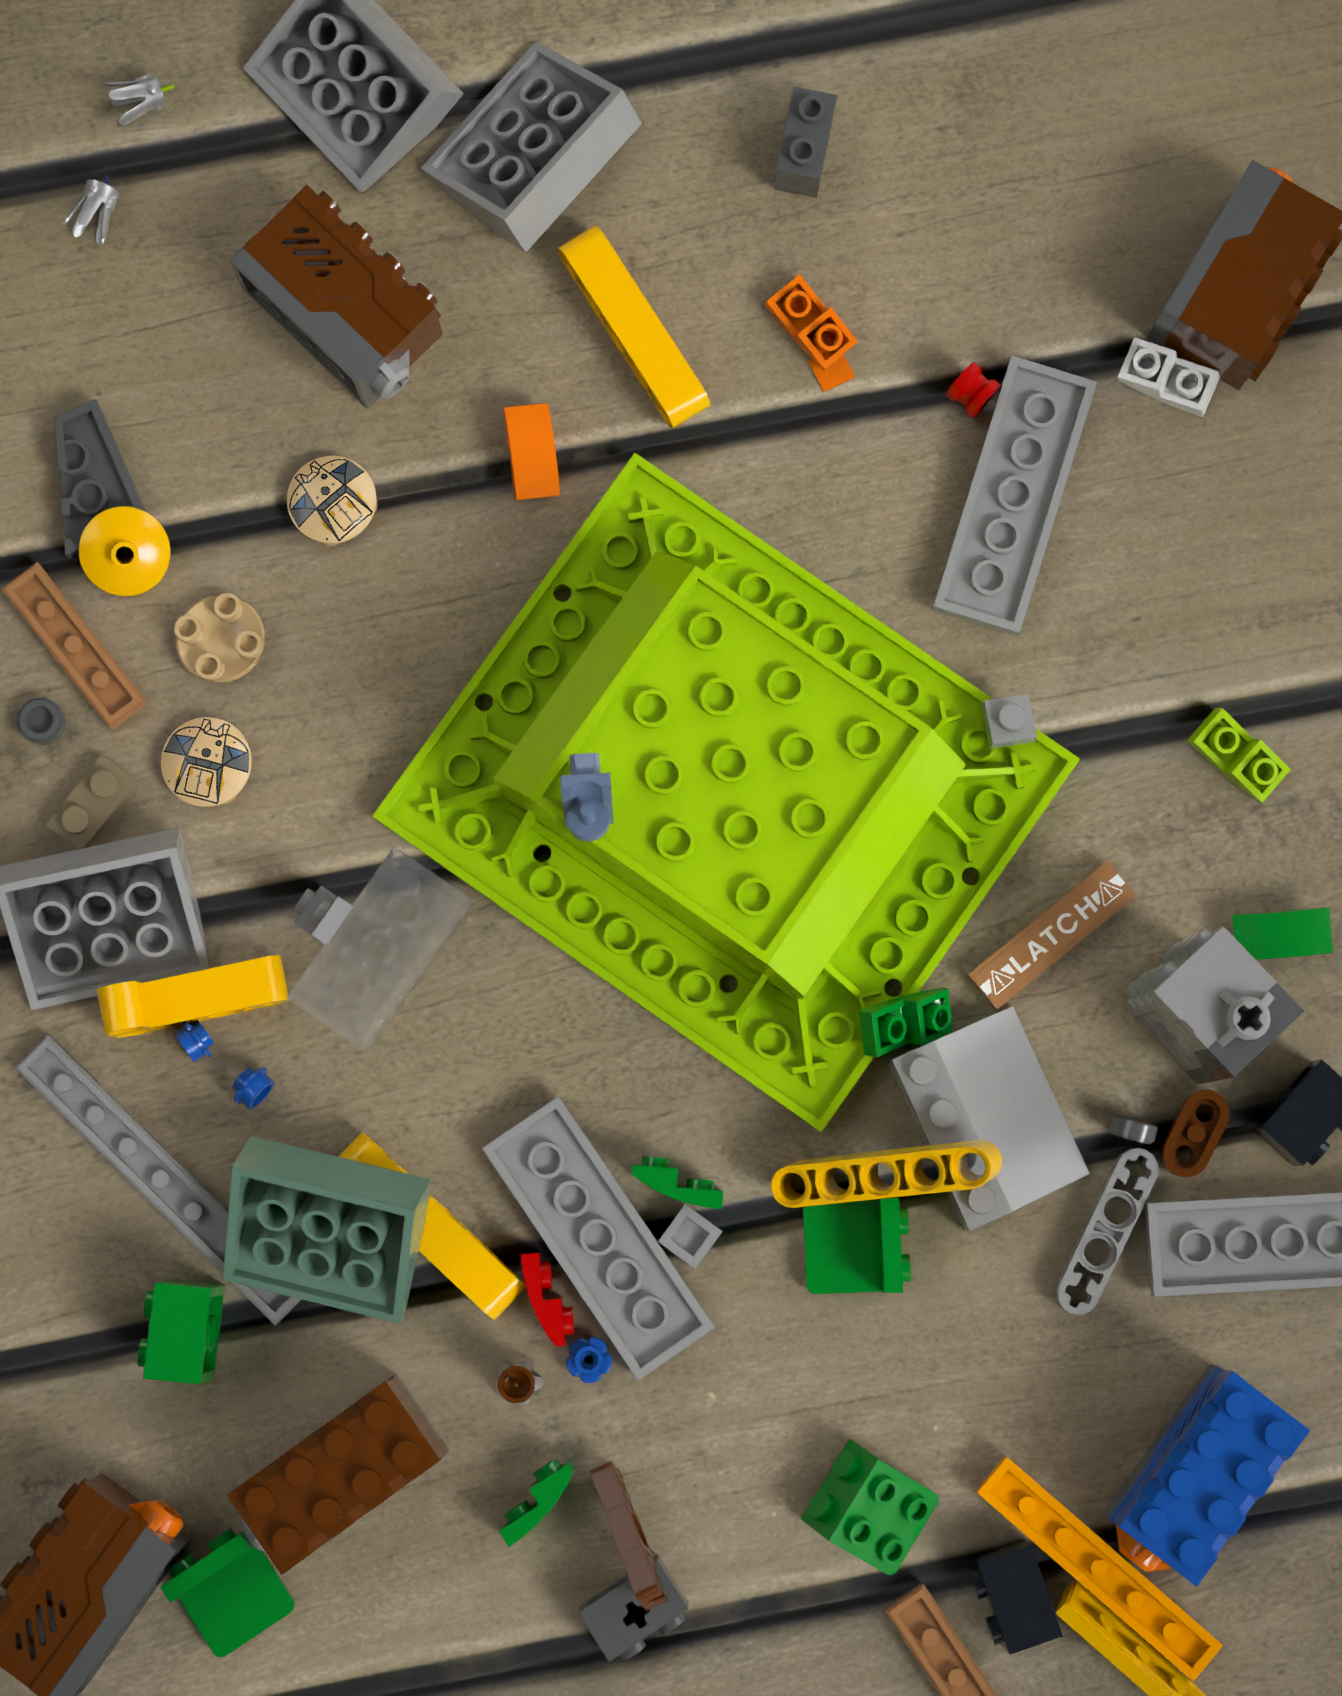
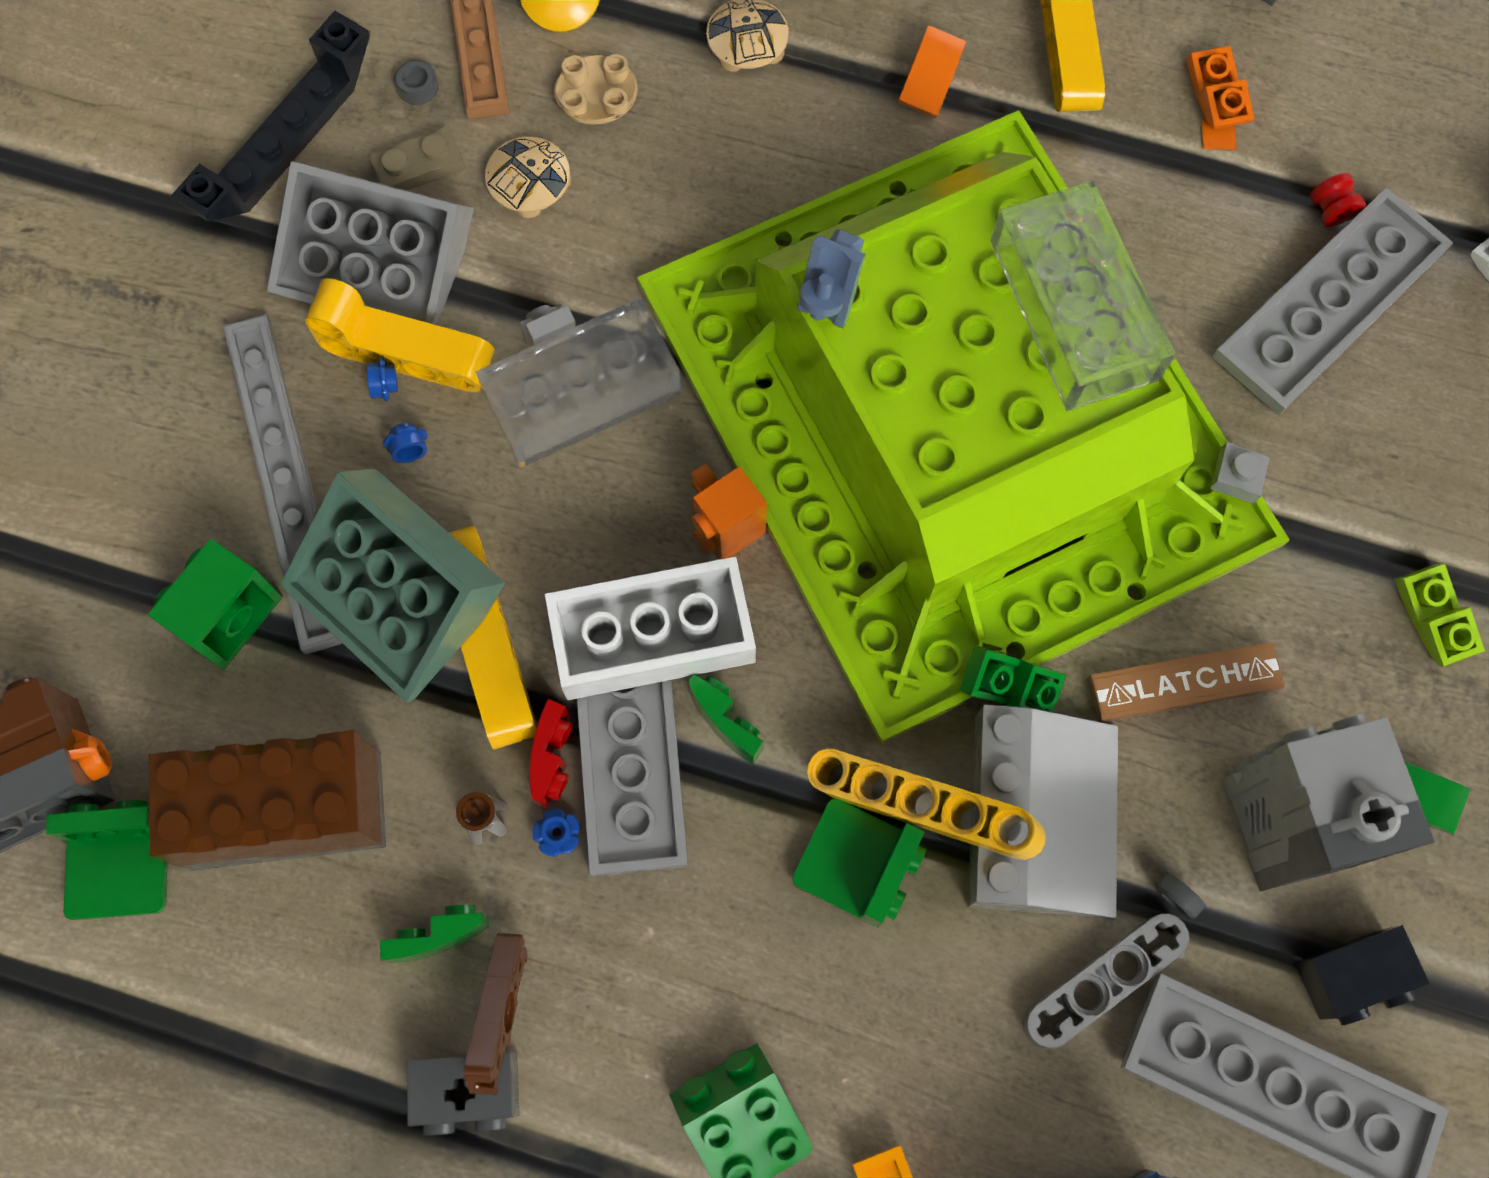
camera: 30 degrees right, 10 degrees down
(576, 1149) = (650, 628): none -> white brick
(581, 1004) = (726, 512): none -> orange brick
(690, 1236) = (711, 771): light grey plate -> none
(801, 692) = (1081, 295): none -> clear brick
(1197, 1136) = (1235, 934): reddish brown plate -> none

